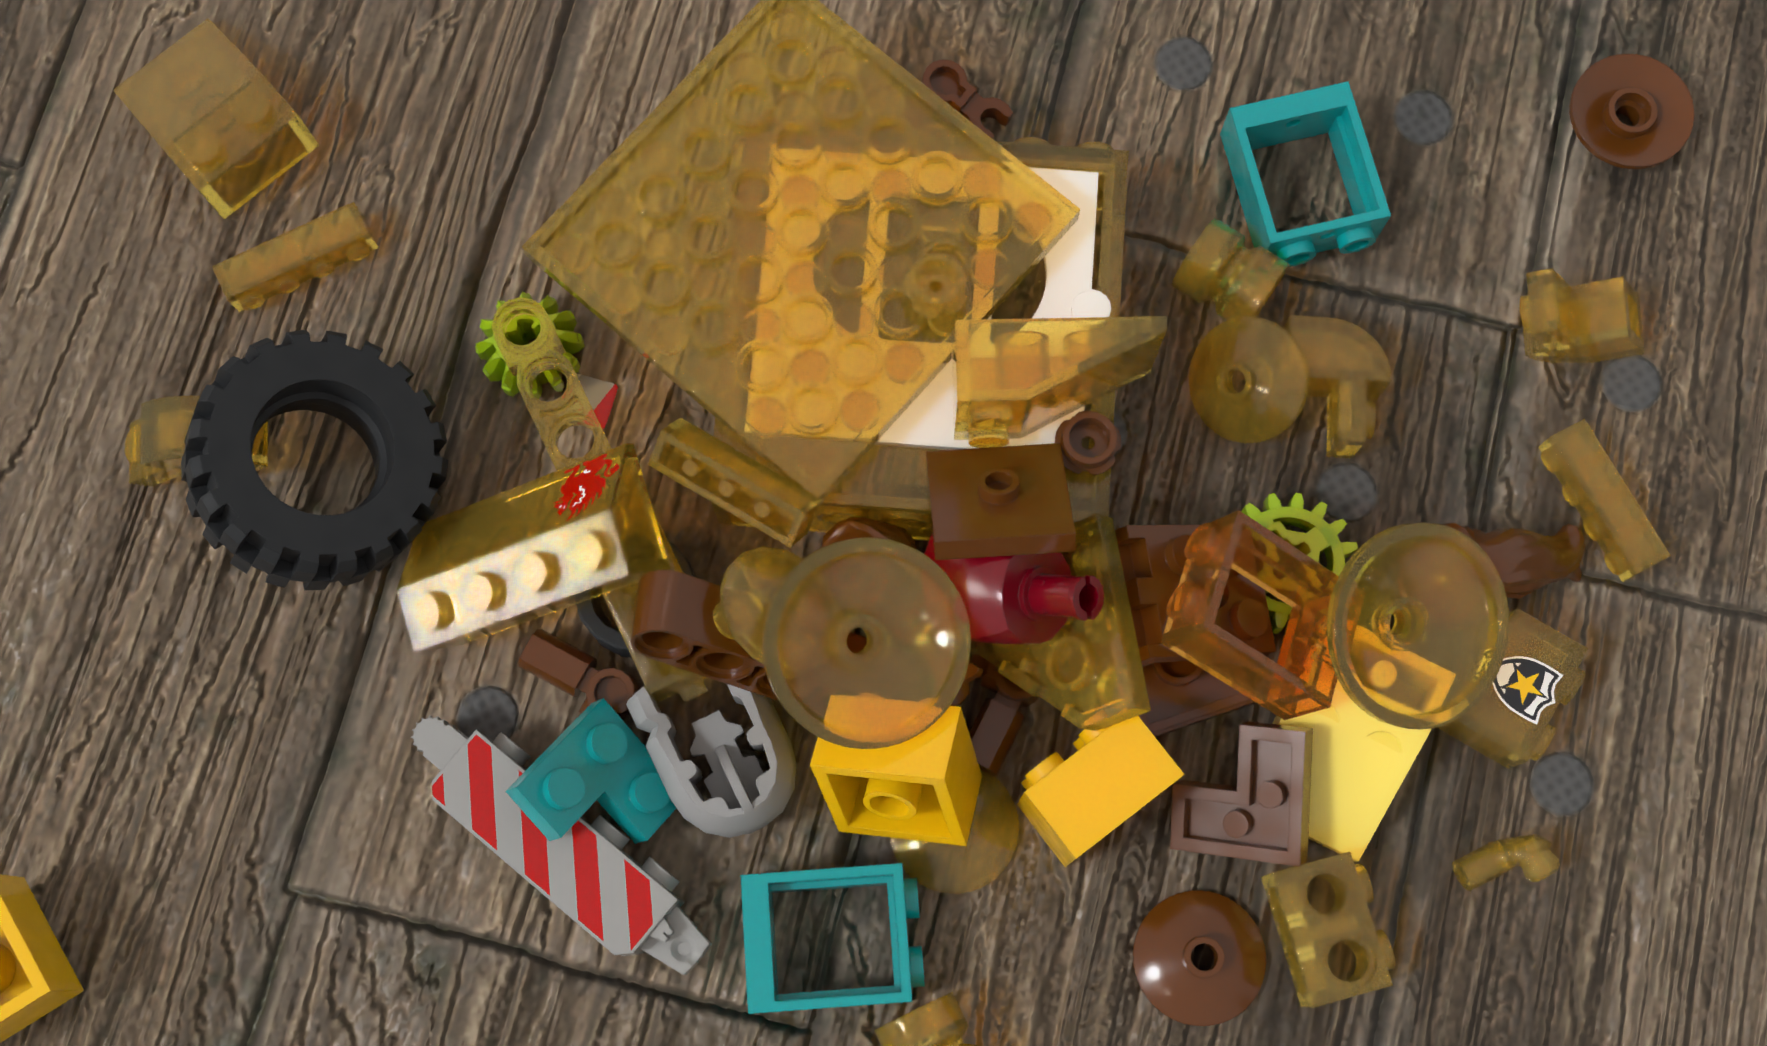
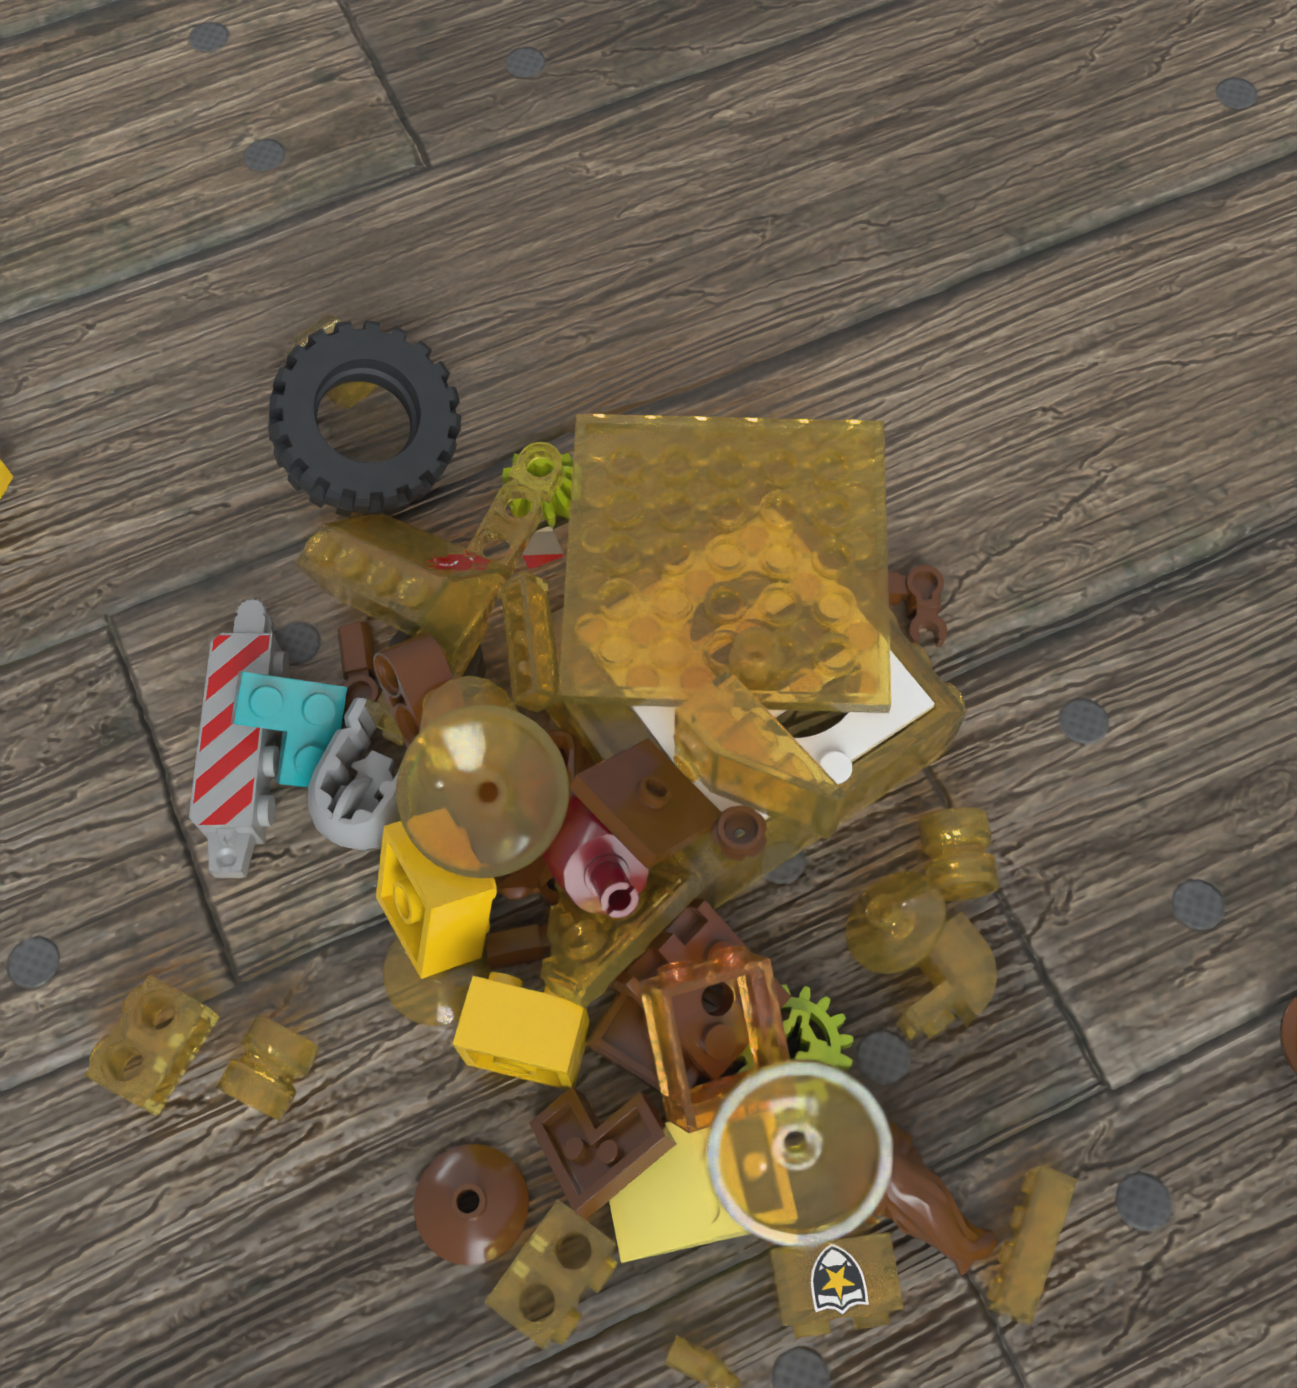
camera: 50 degrees right, 10 degrees down
(217, 117) = (537, 232): clear yellow slope -> none
(295, 257) = (491, 330): clear yellow piece -> none
(761, 943) = (265, 905): teal window -> none
(1293, 118) = (1104, 812): teal window -> none
(1580, 321) = (1146, 1121): clear yellow brick -> none

